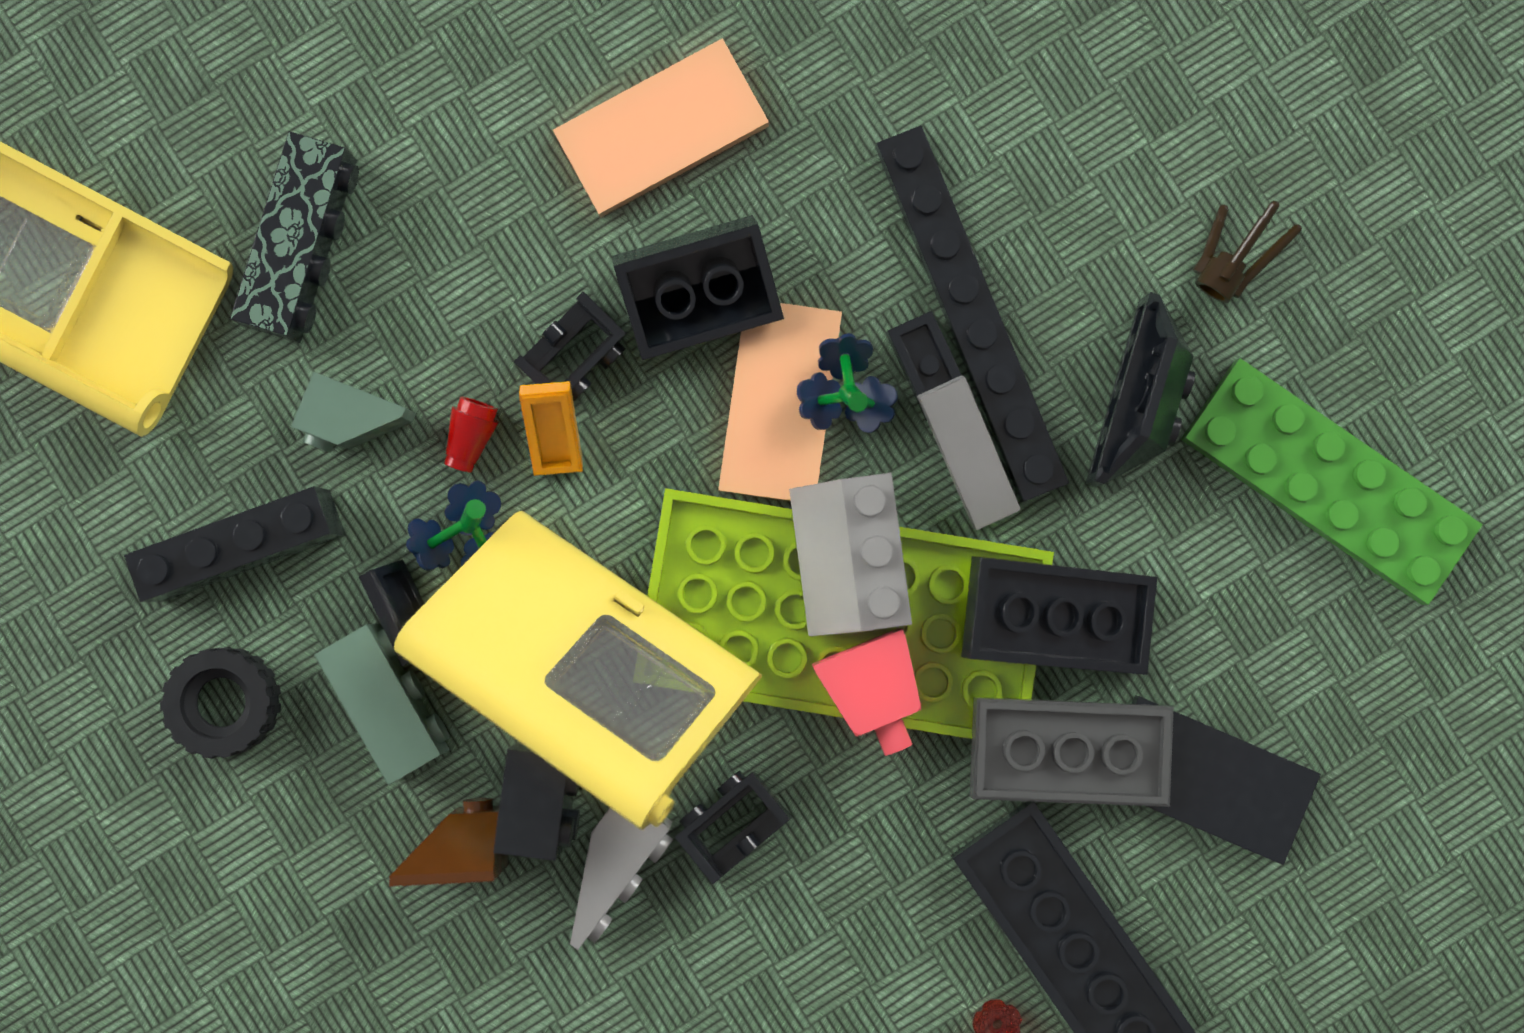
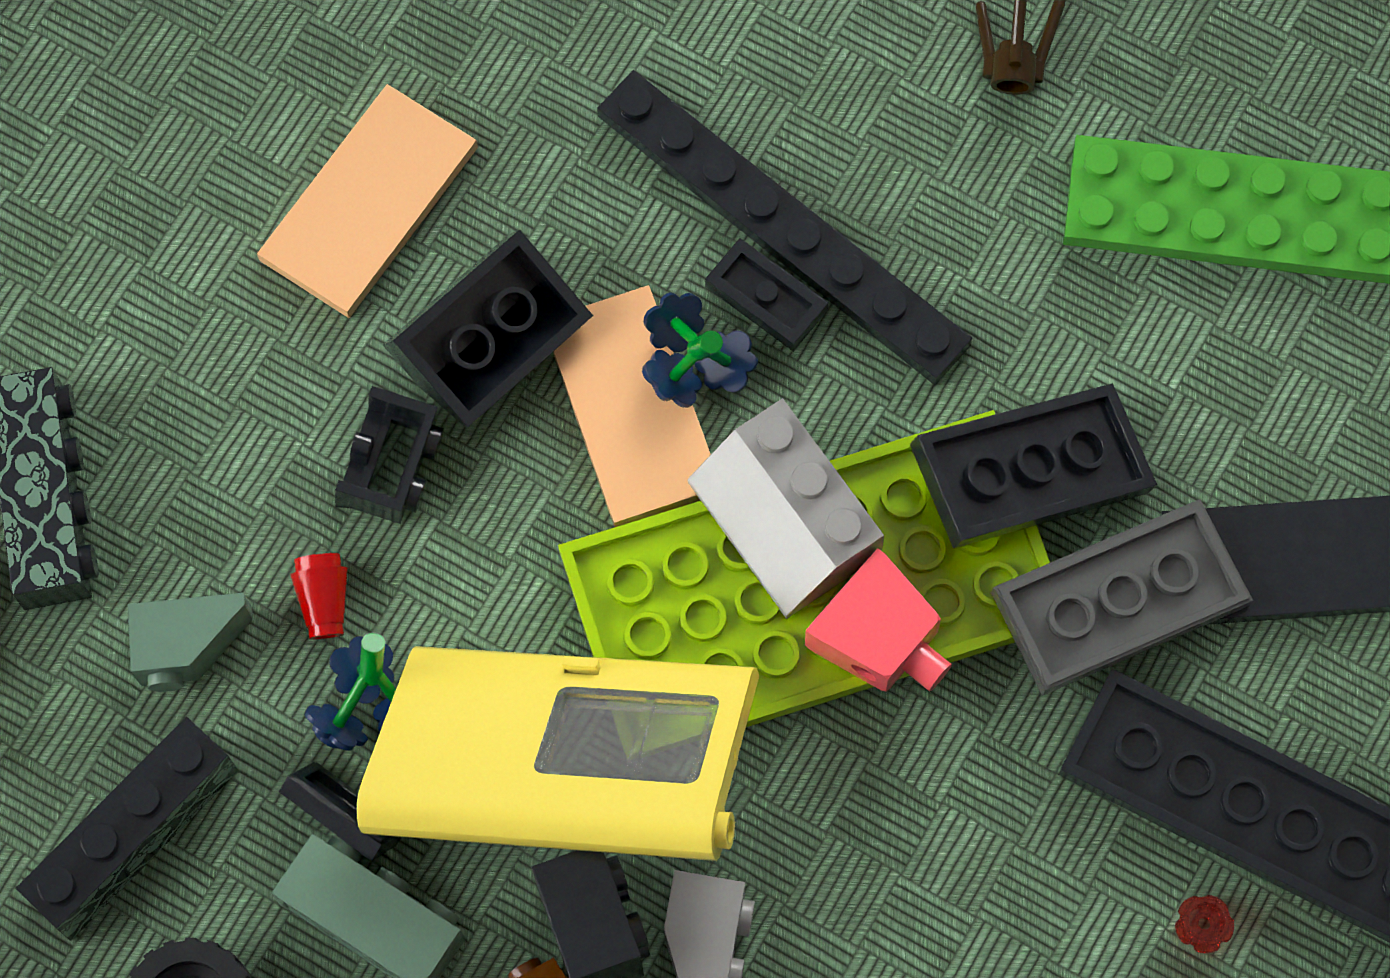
camera: 20 degrees left, 15 degrees down
(551, 428) = (408, 541): light orange tile -> none
(746, 841) = (793, 821): black window -> none
(968, 452) = (853, 356): light grey tile -> none
(1144, 395) = (1000, 215): black wedge -> none

